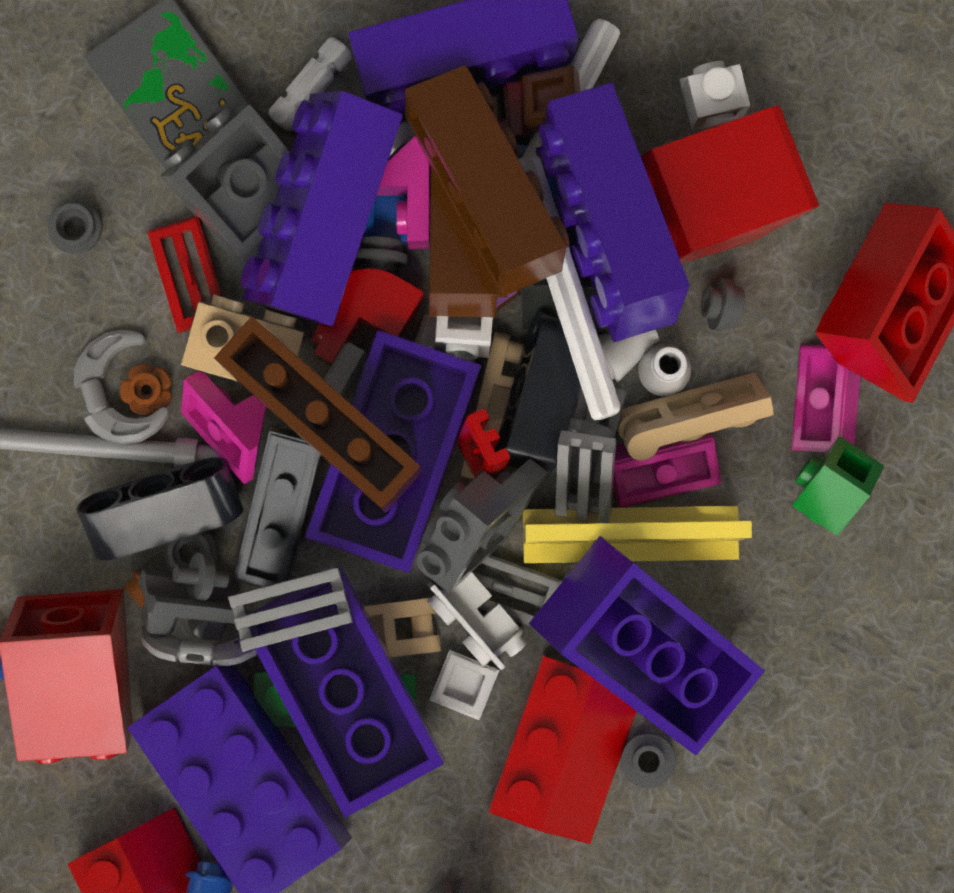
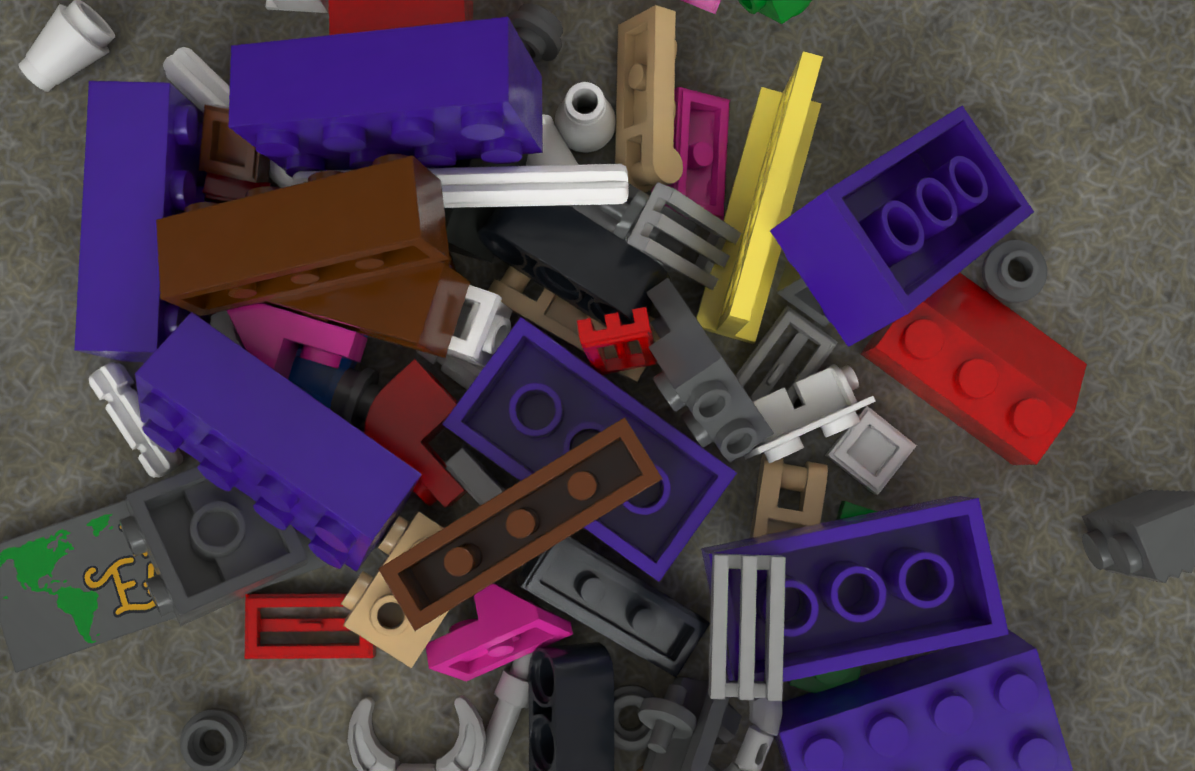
camera: 75 degrees left, 0 degrees up
(144, 375) = (410, 717): dark orange plate -> none

